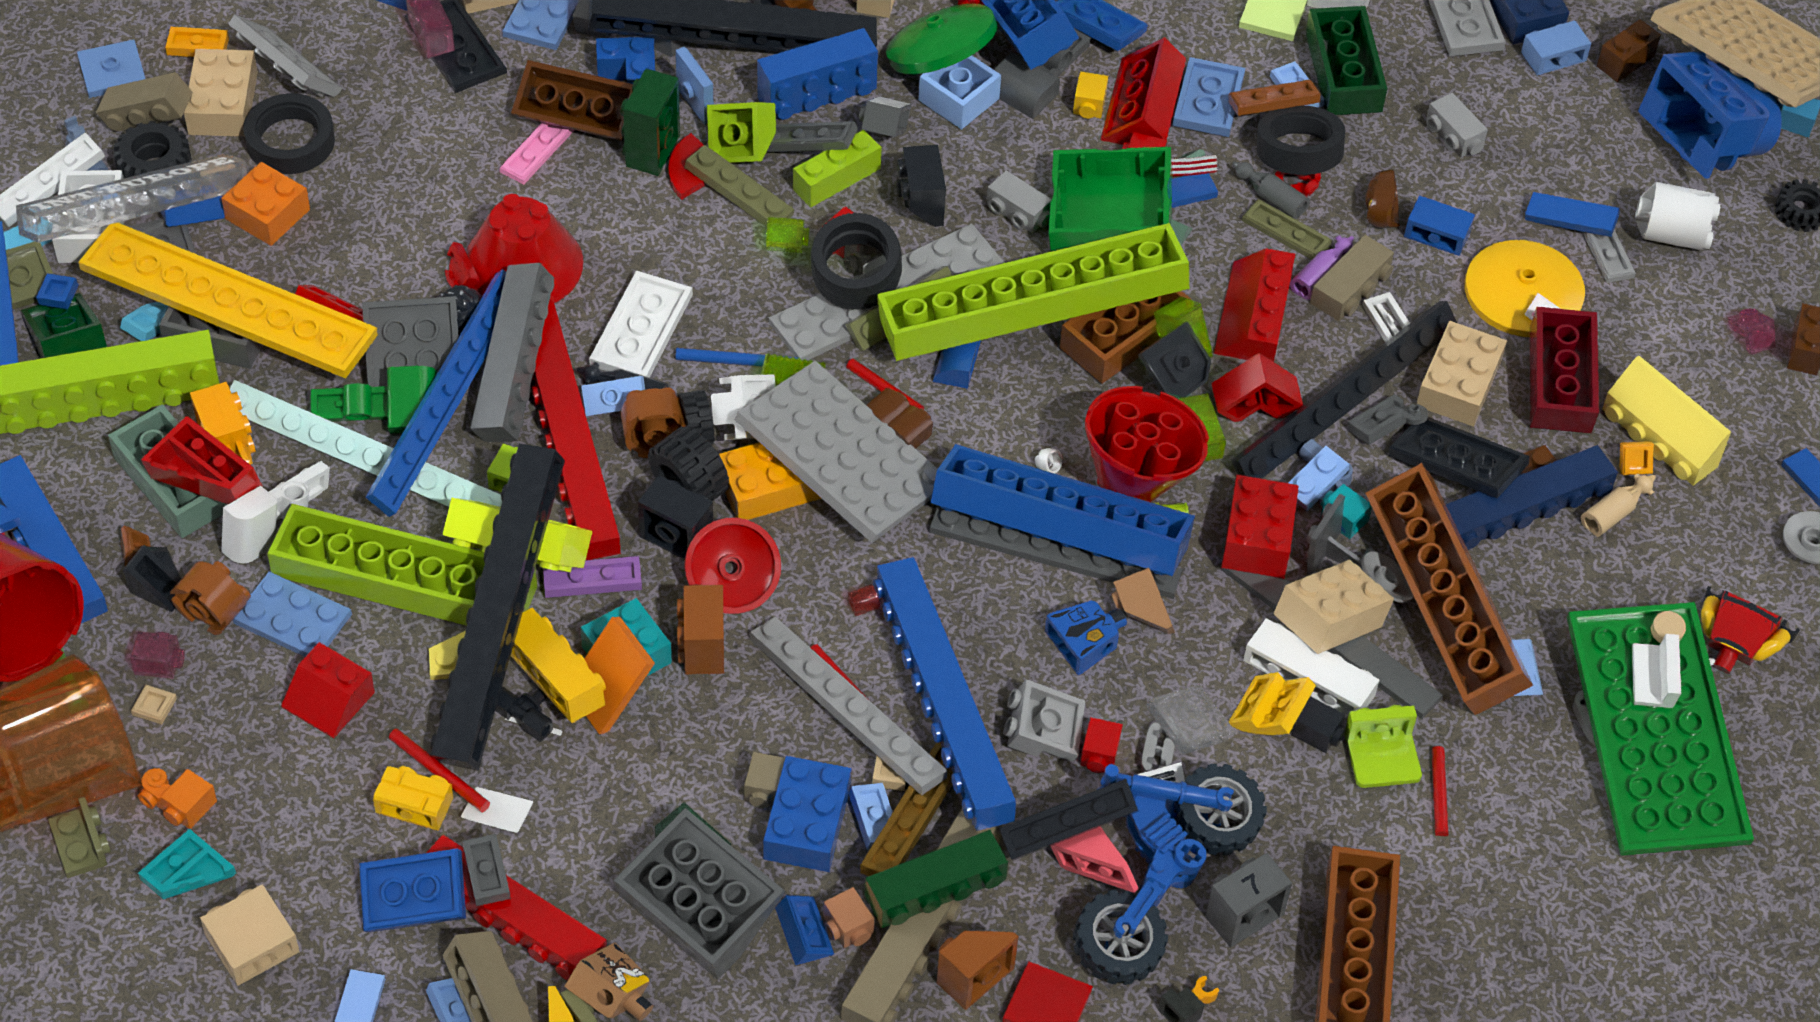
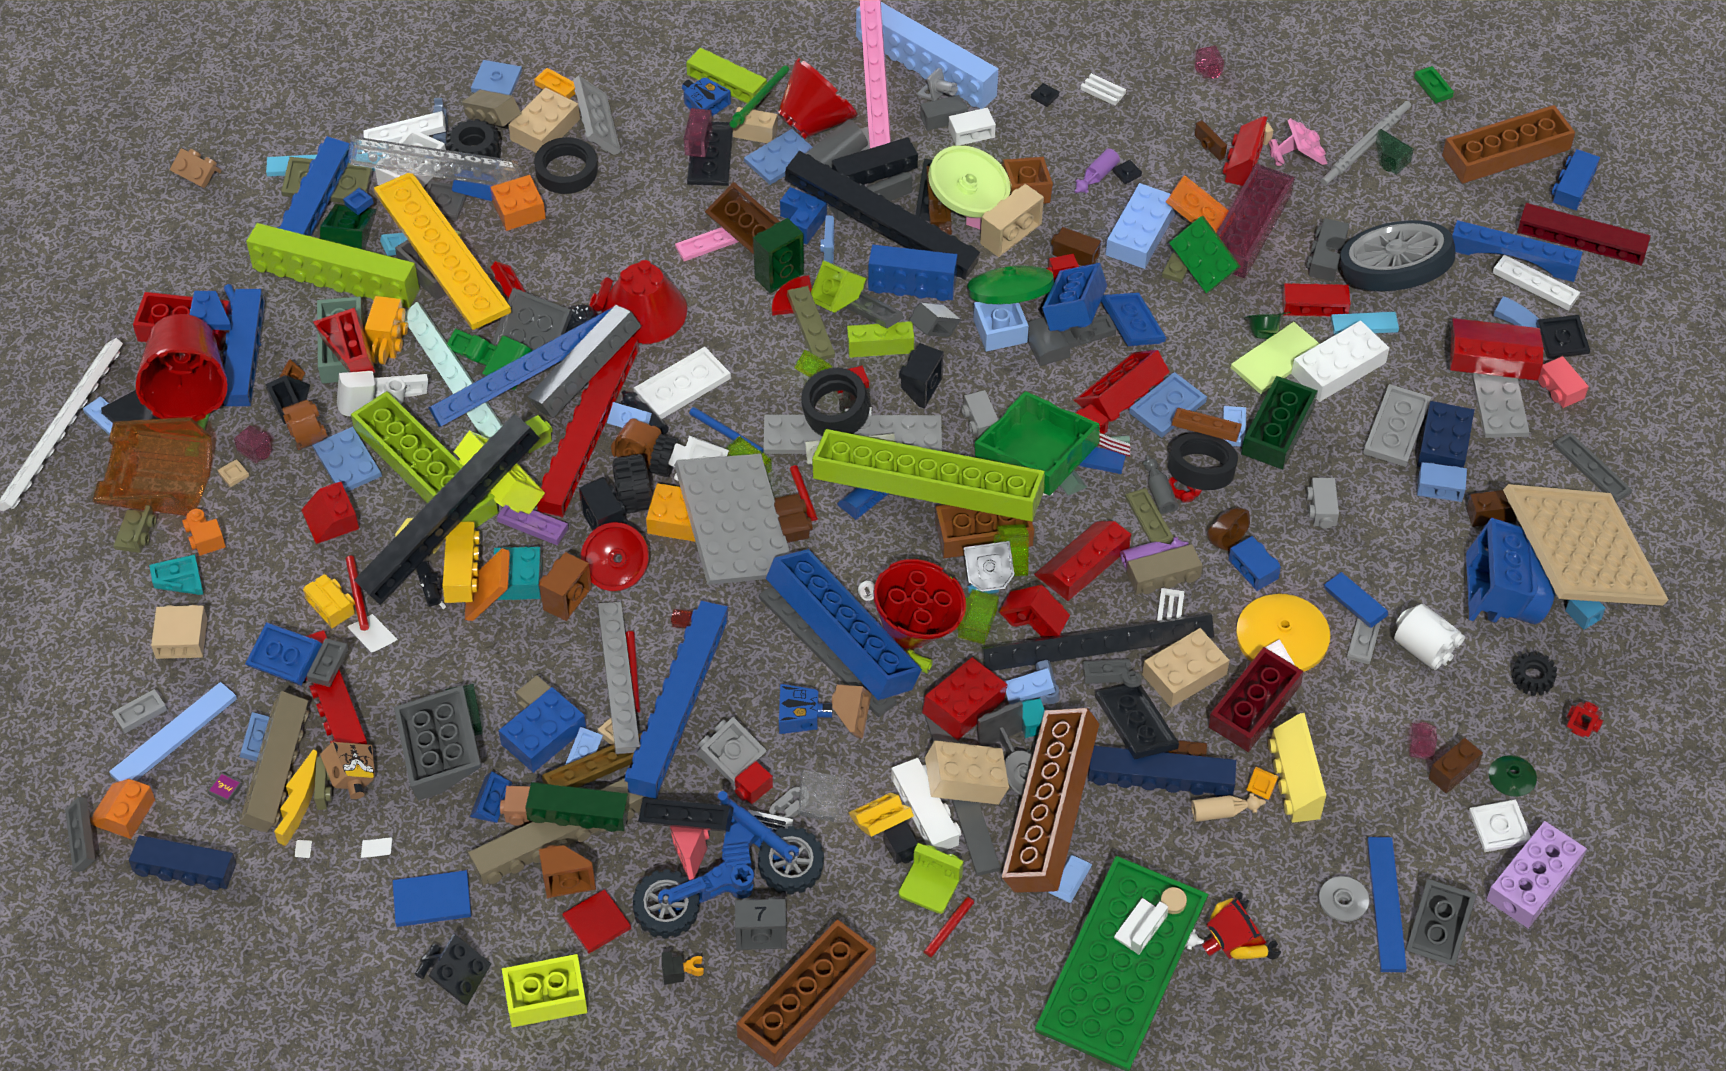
camera: 35 degrees right, 0 degrees up
(1090, 95) = (1086, 367): yellow brick -> none

